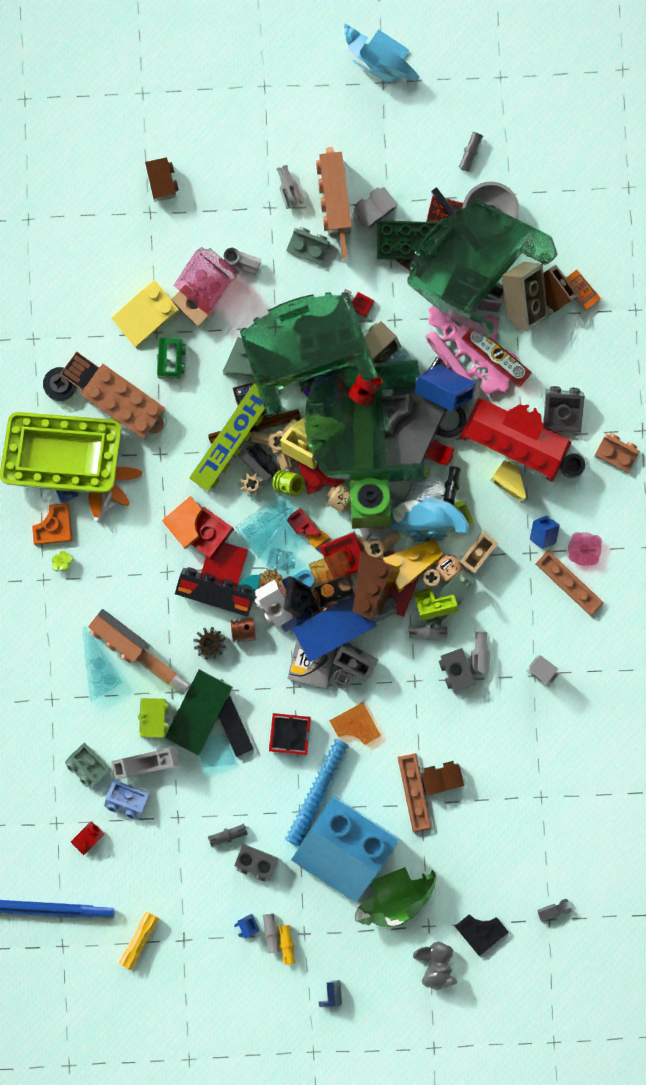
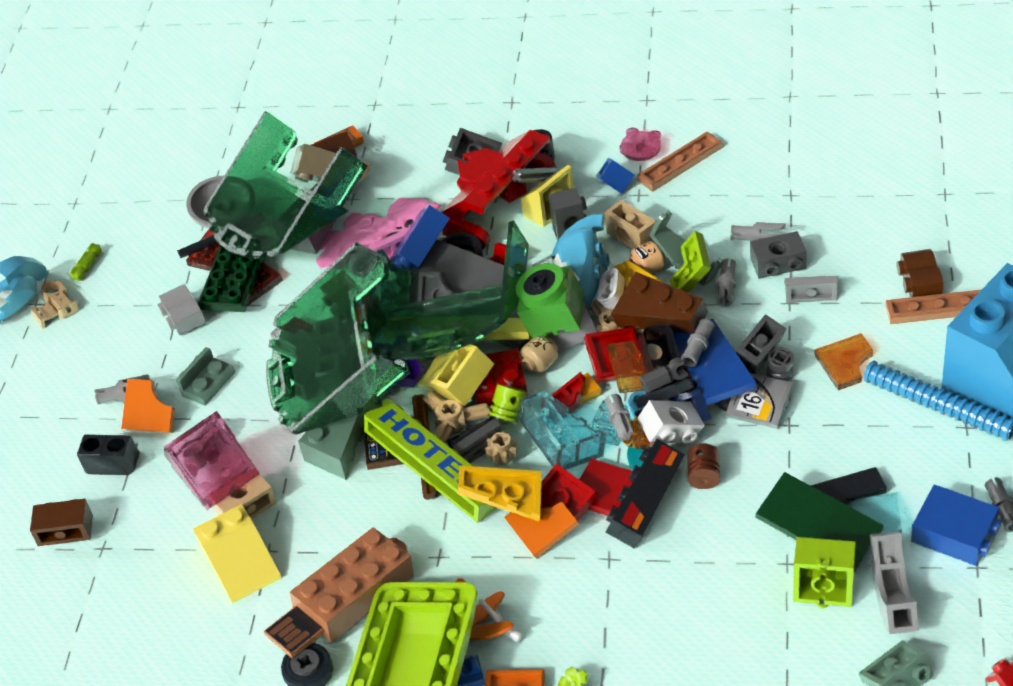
camera: 70 degrees left, 40 degrees down
(100, 671) = (747, 645): clear light blue wing -> none
(126, 800) = (951, 623): medium blue bracket -> none
(134, 649) = (710, 594): nougat piece -> none
(162, 358) = (306, 526): green window -> none
(202, 494) = (503, 488): none -> yellow wing
(205, 648) = (718, 507): dark brown gear -> none
(205, 803) = (955, 525): none -> blue brick
(231, 191) = (119, 461): none -> black piece
(268, 210) = (144, 410): none -> orange tile
(271, 567) = (619, 417): none -> light grey axle
(289, 733) = (855, 422): black piece -> none
(306, 595) = (662, 375): none -> dark grey bar
(334, 197) = (157, 337): nougat piece -> none
(342, 617) = (698, 342): none -> light grey pin
(364, 391) = (399, 304): red wheel -> none
(378, 104) = (54, 303): none -> tan piece
(402, 546) = (610, 288): none -> white beam
(429, 111) = (85, 261): none -> lime axle
(429, 696) = (811, 289): none -> light grey panel
(435, 573) = (657, 268): tan bush -> none
(454, 474) = (541, 248): black pin -> none
(470, 151) = (147, 225): dark grey pin -> none
(485, 501) = (566, 210): none -> dark grey brick
(498, 357) = (393, 208): tile -> none
(524, 473) = (533, 174): none -> dark grey axle
(542, 670) = (783, 172): light grey brick -> none
(617, 452) = (531, 115): nougat bracket -> none

